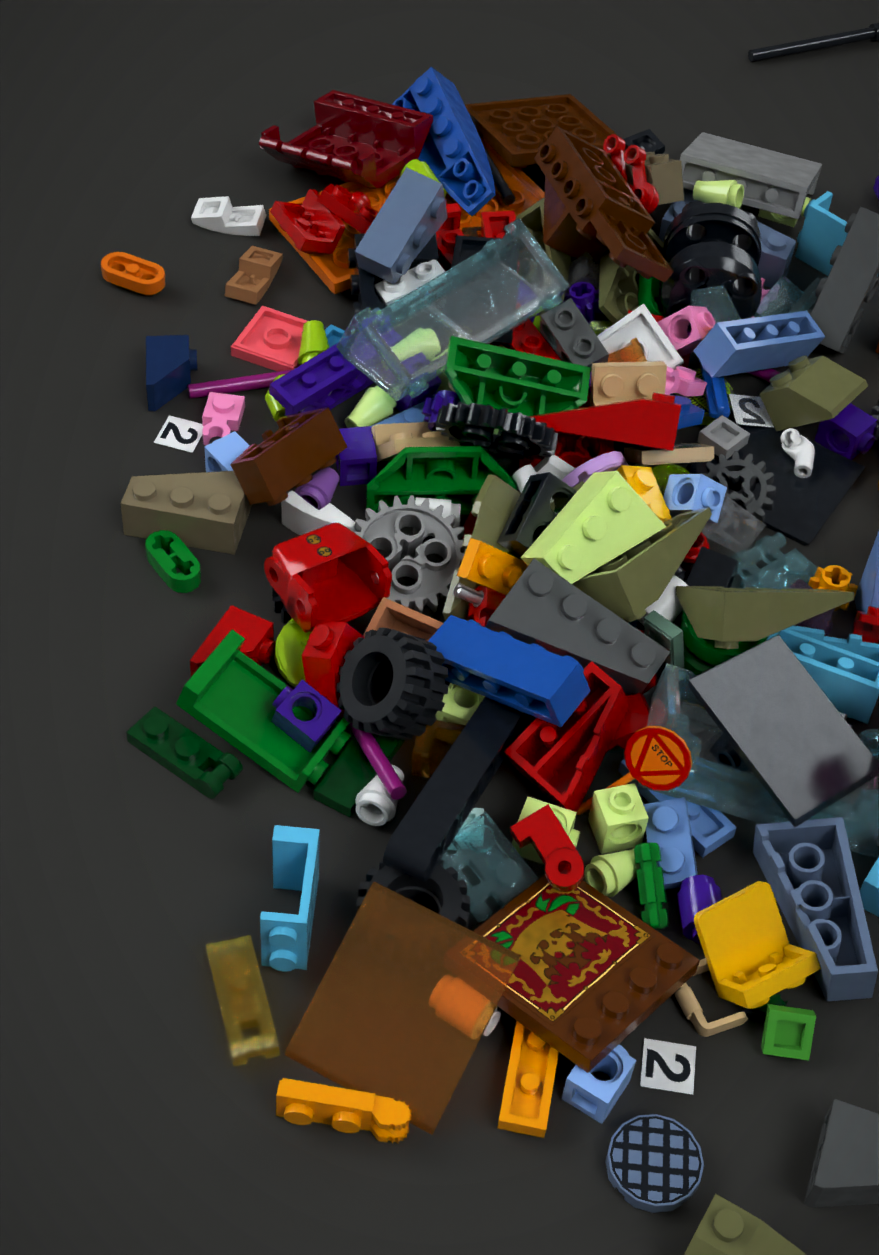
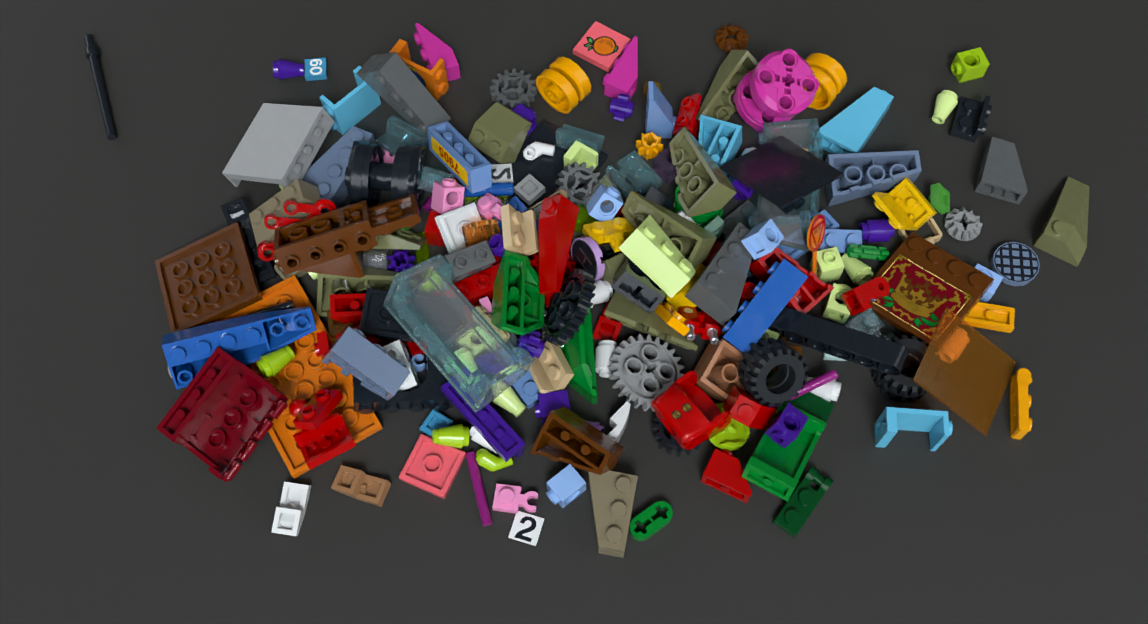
camera: 85 degrees left, 15 degrees up
(133, 273) = (360, 575): orange plate -> none
(168, 368) = (471, 539): dark blue slope -> none
(242, 999) = (963, 457): clear yellow plate -> none
(631, 649) = (762, 239): none -> light blue brick
(668, 1066) = (961, 251): white sticker -> none
(719, 192) = (314, 163): yellowish green cone -> none
(723, 1087) = (957, 230): none -> light grey gear
(792, 496) = (581, 153): none -> yellowish green panel
(828, 503) = (569, 134): none -> clear light blue panel

